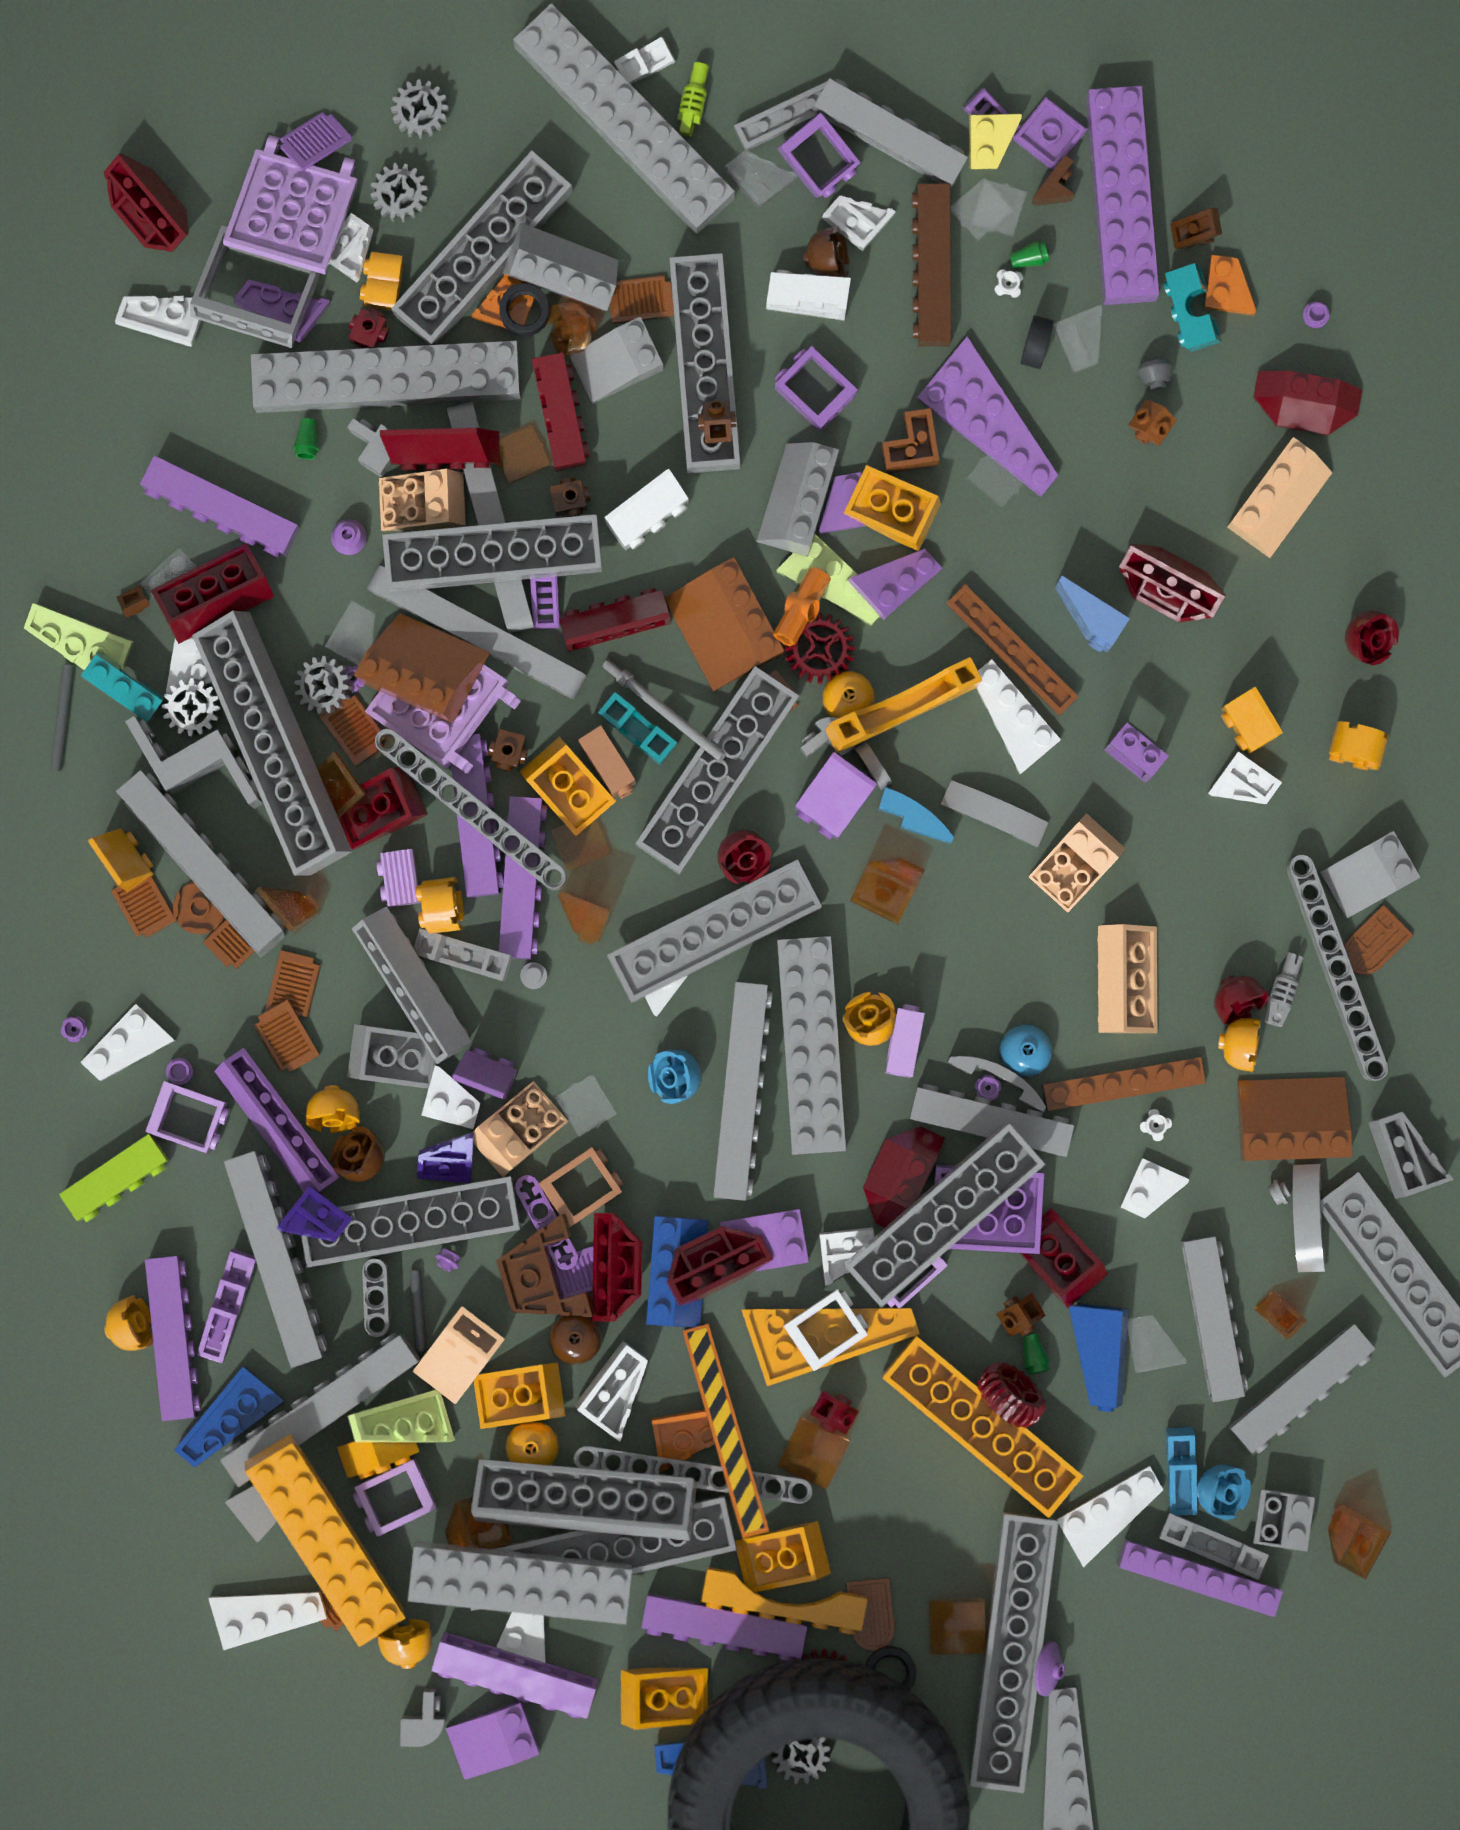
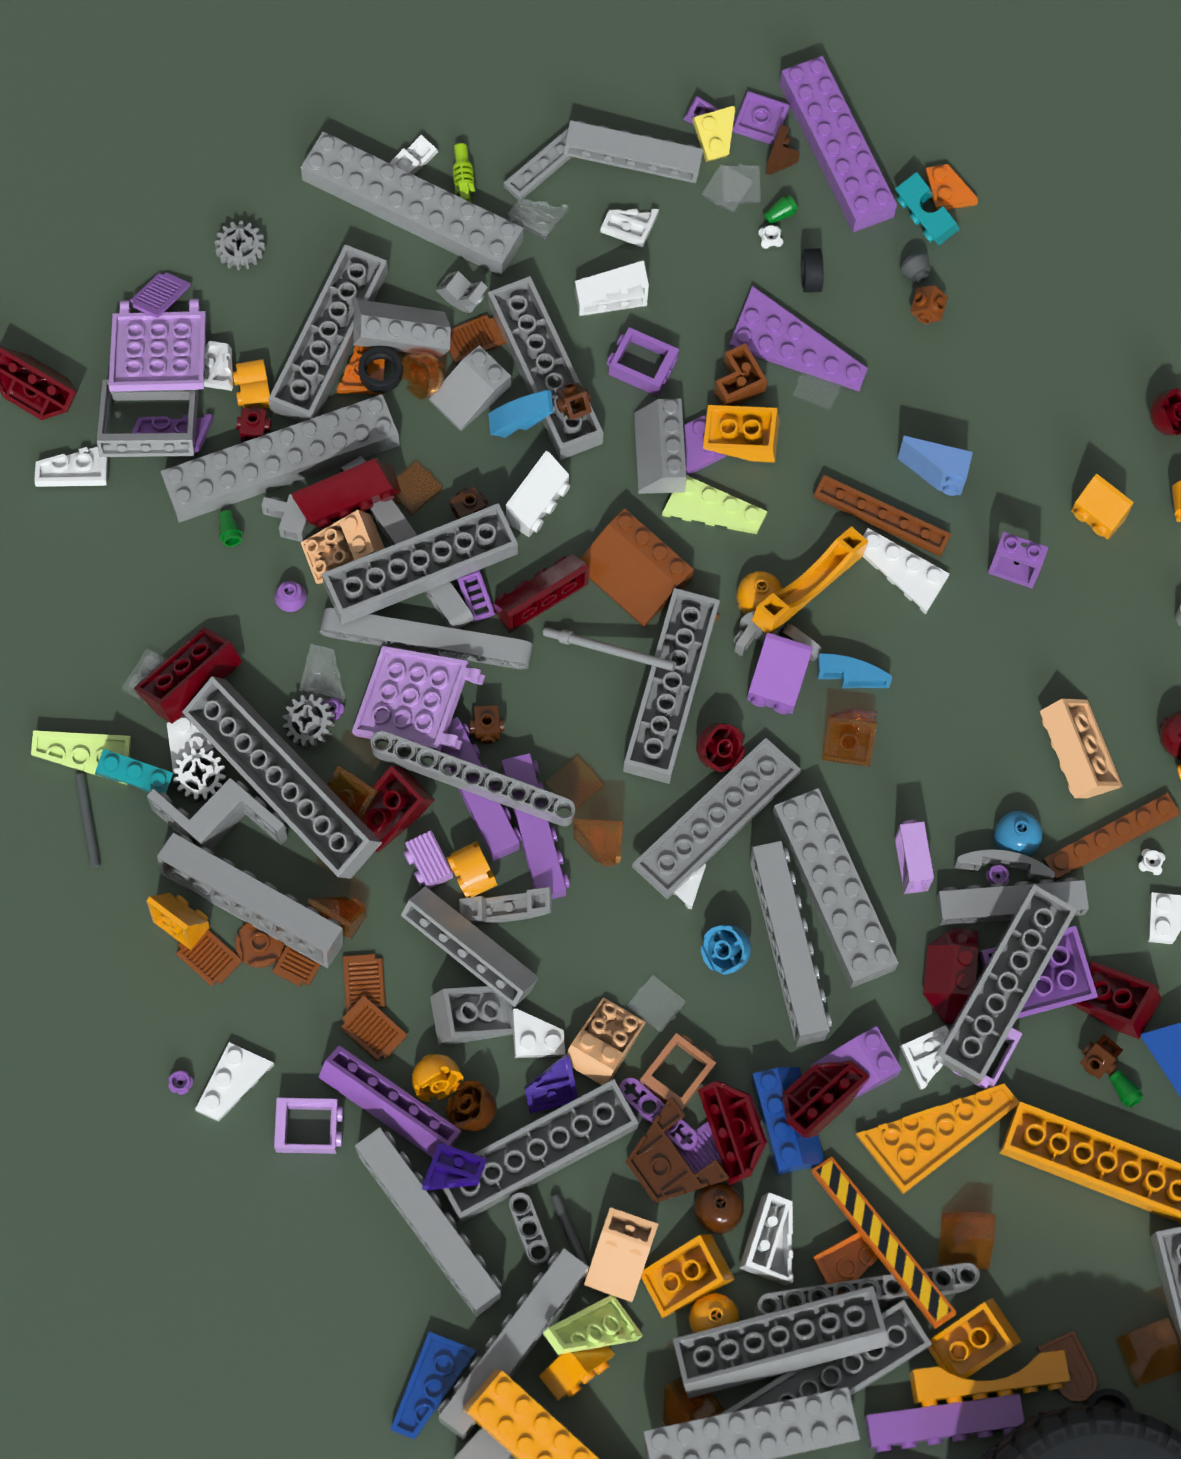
camera: 20 degrees left, 15 degrees down
(114, 1178) = (258, 1200): lime brick -> none
(129, 1324) = (312, 1328): light orange cylinder -> none
(133, 601) = (120, 703): reddish brown plate -> none
(171, 1338) = (355, 1327): medium lavender brick -> none
(179, 1071) = (286, 1088): medium lavender plate -> none
(220, 507) = (171, 604): medium lavender brick -> none
(227, 1306) = (396, 1283): medium lavender slope -> none
(353, 729) = (346, 750): dark orange window -> none
(389, 189) = (233, 309): light grey gear -> none
(420, 1485) = (625, 1386): lavender window -> none
(422, 667) = (390, 678): dark orange slope -> none
(447, 1260) = (581, 1175): medium lavender plate -> none
(486, 1074) = (561, 1002): medium lavender slope -> none
(533, 975) = (572, 906): light grey plate -> none
(559, 412) = (436, 440): dark red wedge -> none
(567, 786) = (547, 738): light orange slope -> none
(608, 763) = (576, 706): nougat window -> none
(637, 729) = (576, 668): teal arch -> none
(643, 242) = (461, 292): none -> light grey brick
(658, 412) = (520, 413): none -> dark azure slope
(802, 134) = (592, 170): medium lavender window -> none
(802, 606) = (696, 529): orange piece -> none
(811, 637) = (708, 551): dark red gear -> none
(827, 253) = (613, 253): reddish brown cylinder -> none
(834, 1412) = (972, 1195): dark red brick -> none
(857, 1321) = (921, 1141): white window -> none
(870, 1018) = (878, 847): light orange cylinder -> none
(895, 582) = (765, 490): medium lavender wing -> none
(933, 265) = (705, 240): reddish brown brick -> none
(994, 813) = (916, 647): light grey slope -> none
(1011, 1394) = (1121, 1125): dark red gear -> none
(1077, 862) = (1001, 668): light nougat slope -> none
(1081, 338) = (845, 260): clear wing -> none
(1170, 584) = (992, 424): dark red wedge -> none
(1196, 229) = (907, 150): reddish brown slope -> none
(1245, 782) = (1115, 560): white wing -> none
(1280, 498) = (1054, 331): light nougat slope -> none
(1306, 401) = (1044, 251): dark red wedge -> none
(1316, 314) = (1026, 187): medium lavender plate -> none

